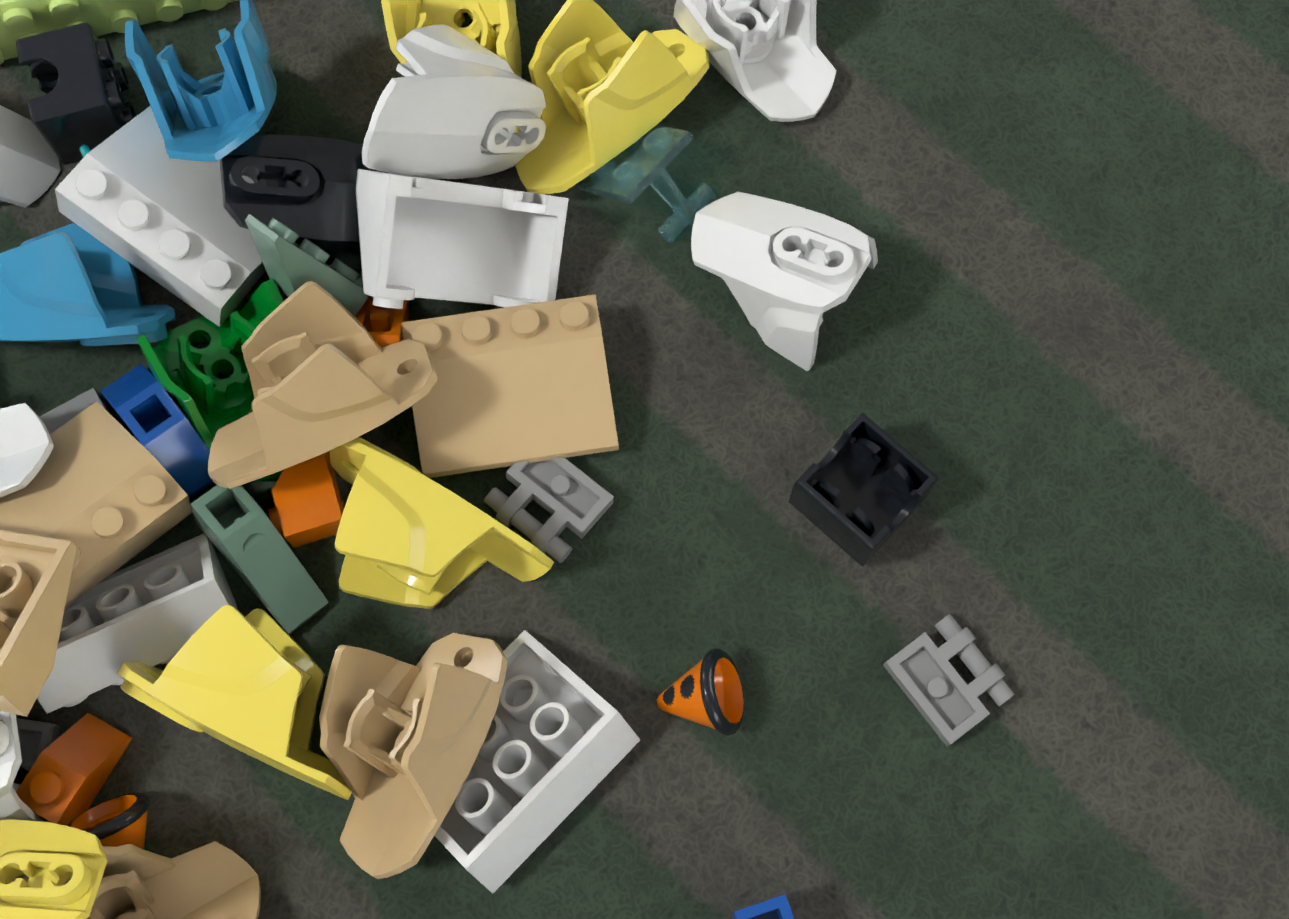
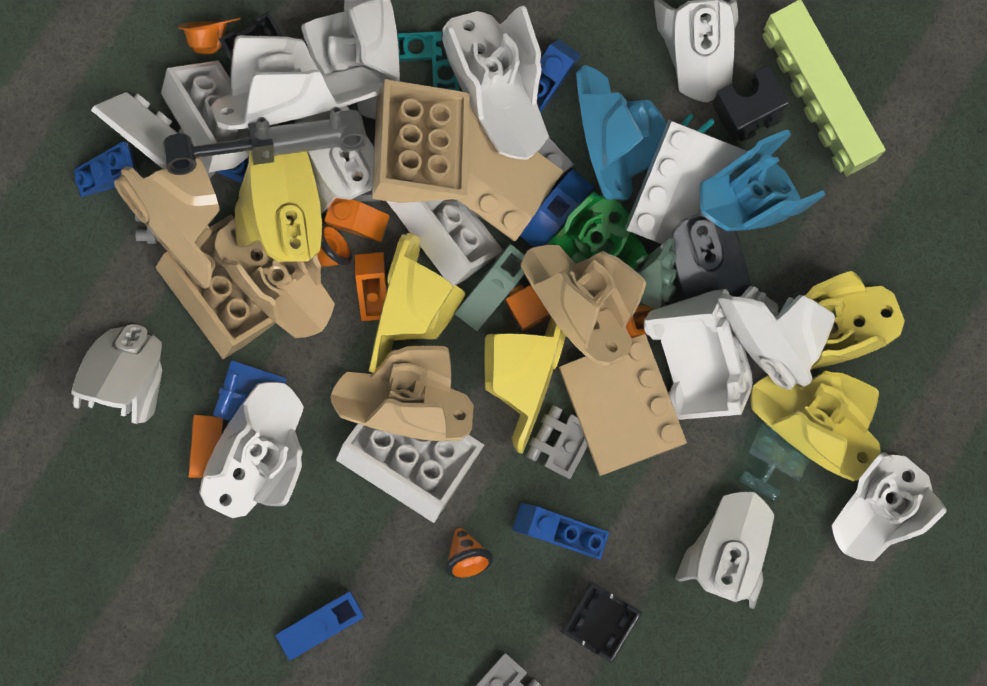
camera: 80 degrees right, 10 degrees up
(199, 766) = (371, 284): none -> orange slope
(694, 533) = (560, 530): none -> blue slope

